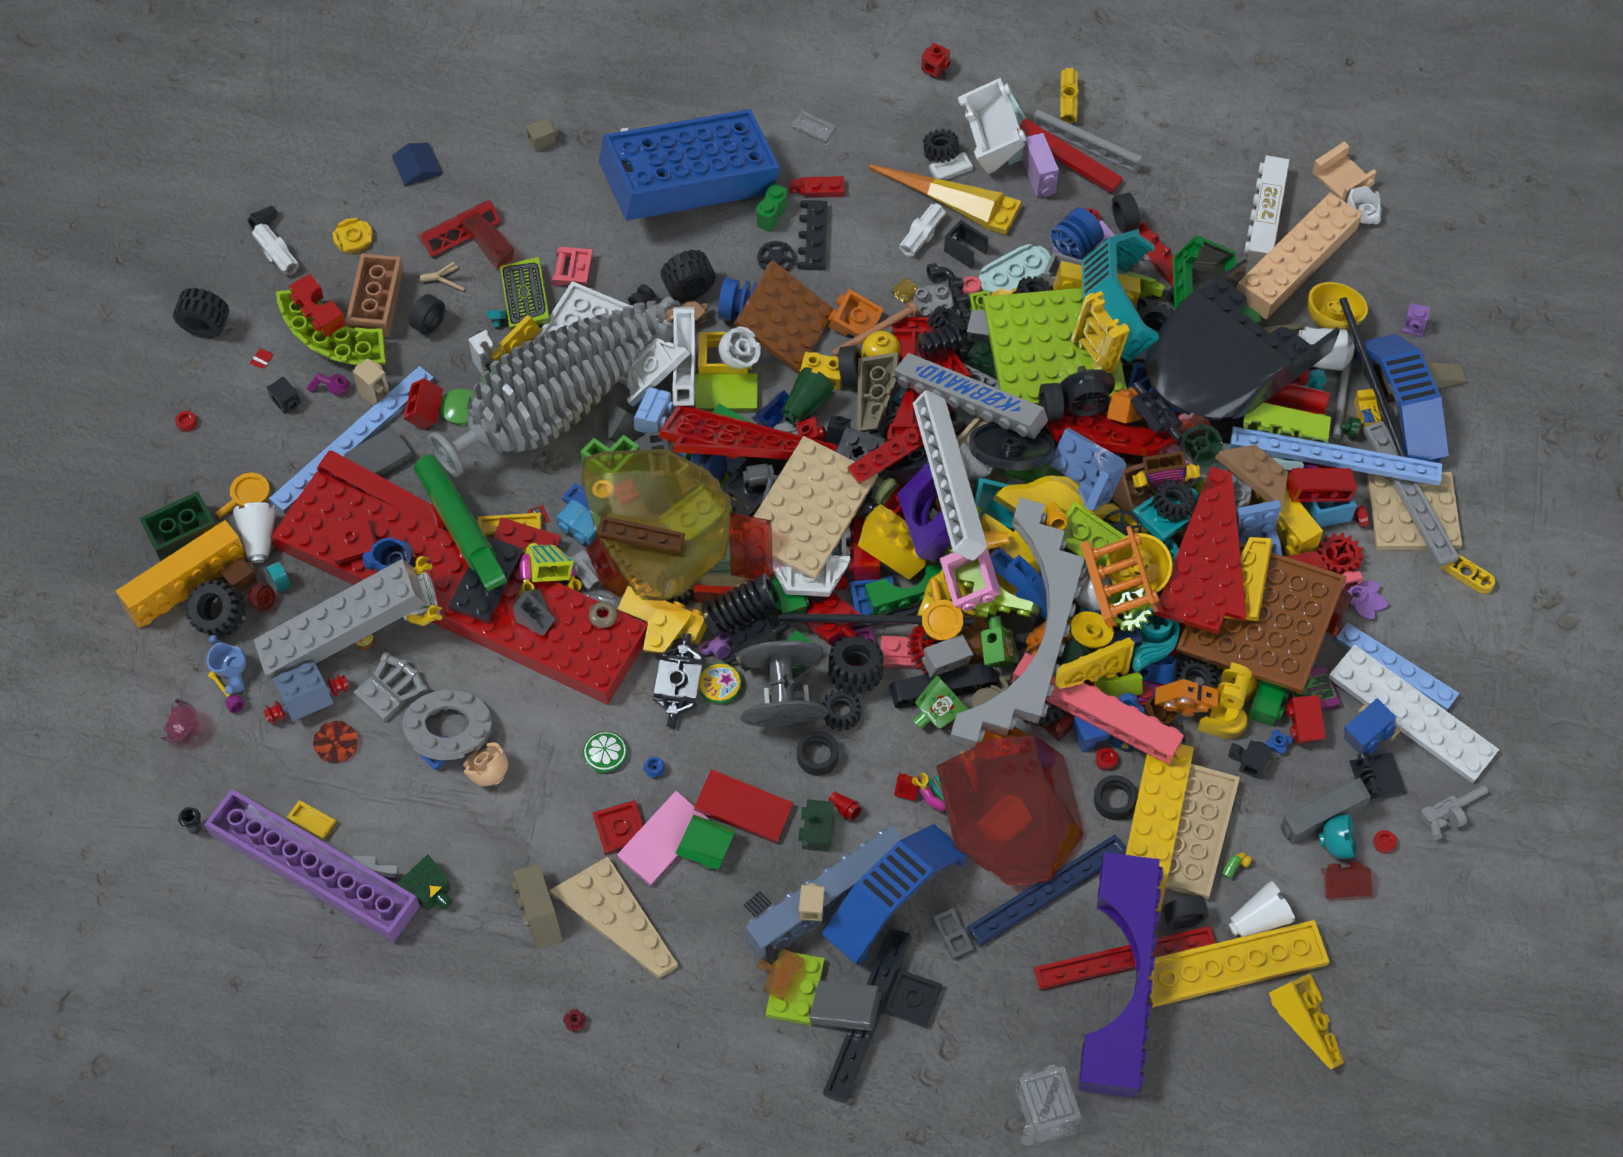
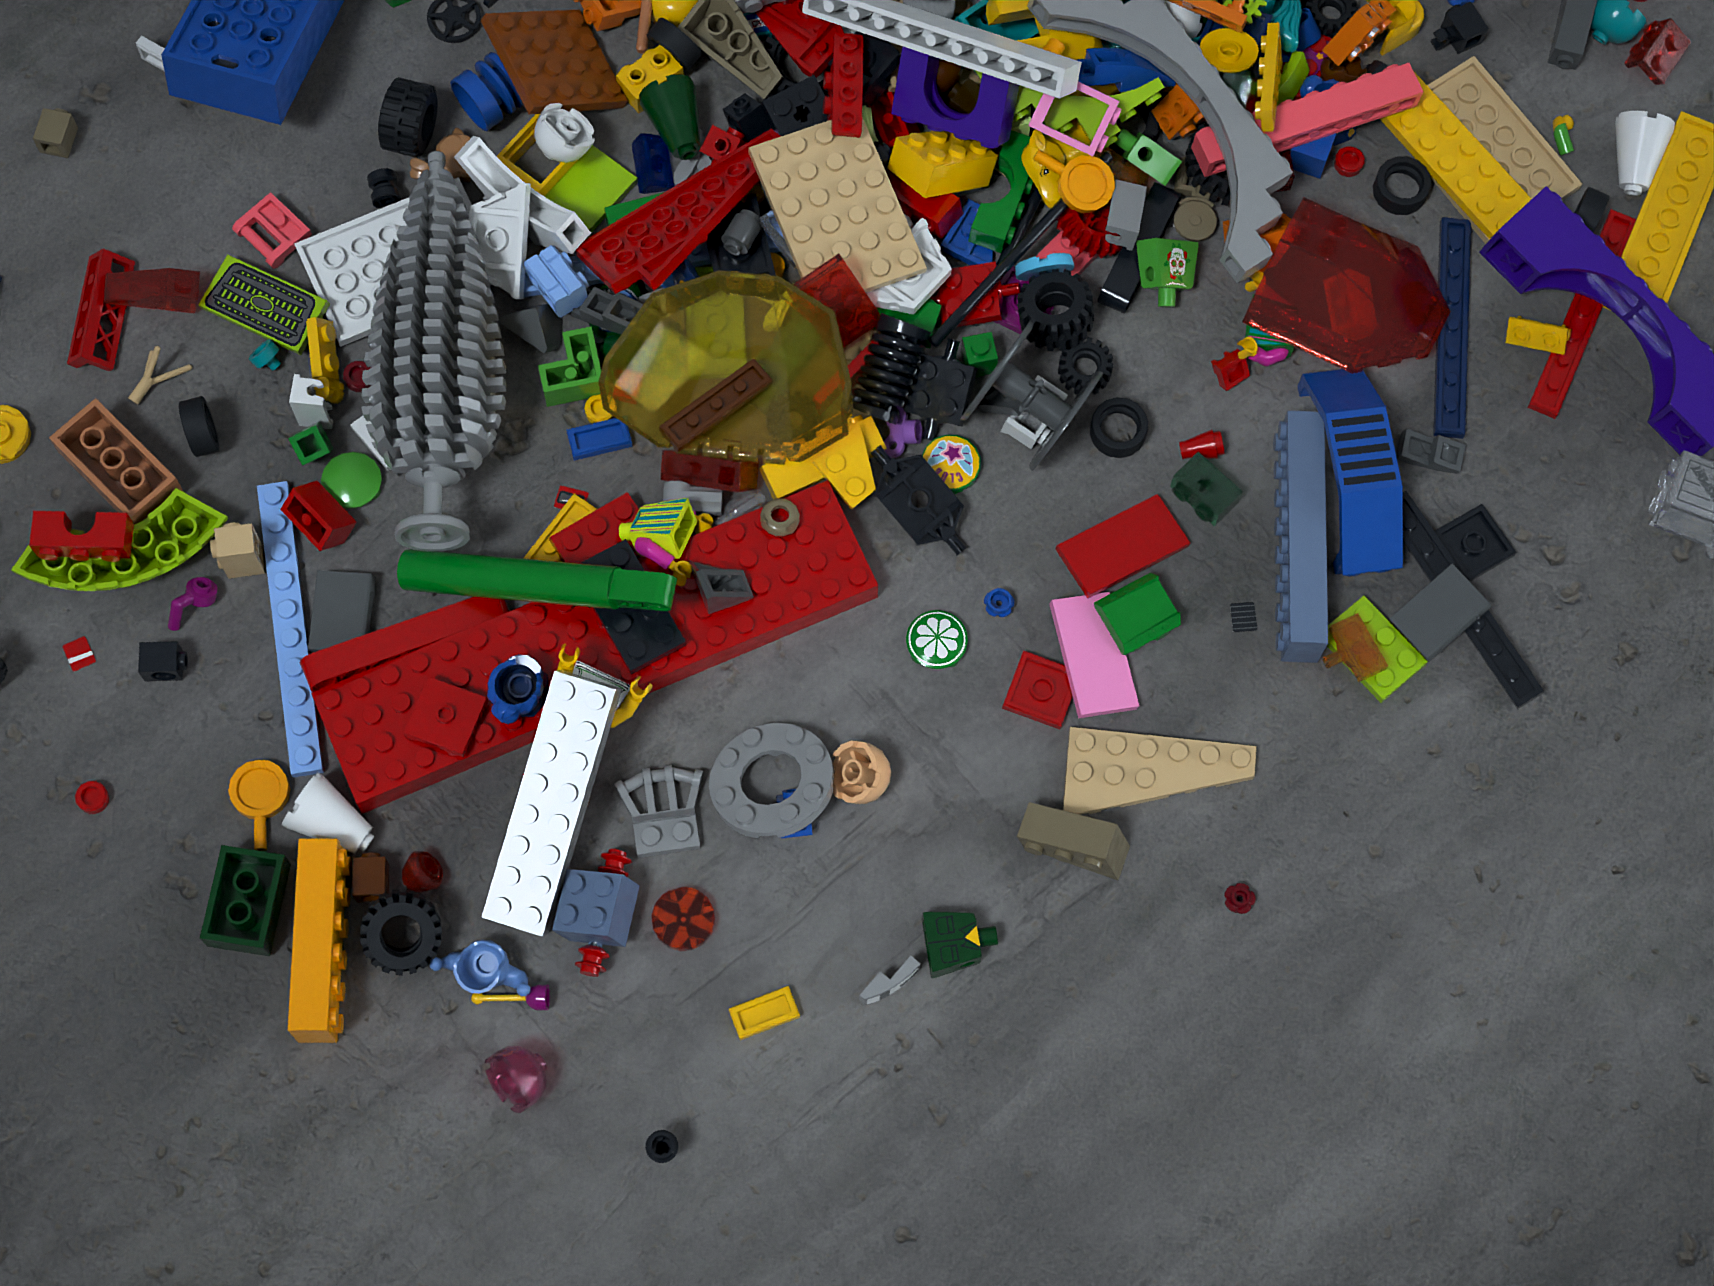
camera: 55 degrees left, 10 degrees up
(278, 577) = (412, 834): teal piece -> none
(312, 865) = (831, 1049): medium lavender brick -> none
(461, 370) = (310, 443): none -> green brick
(578, 522) = (625, 461): dark azure brick -> none
(811, 902) = (1321, 553): tan brick -> none
(877, 637) = (1032, 266): none -> medium azure tile
(1081, 937) = (1537, 335): none -> yellow hinge

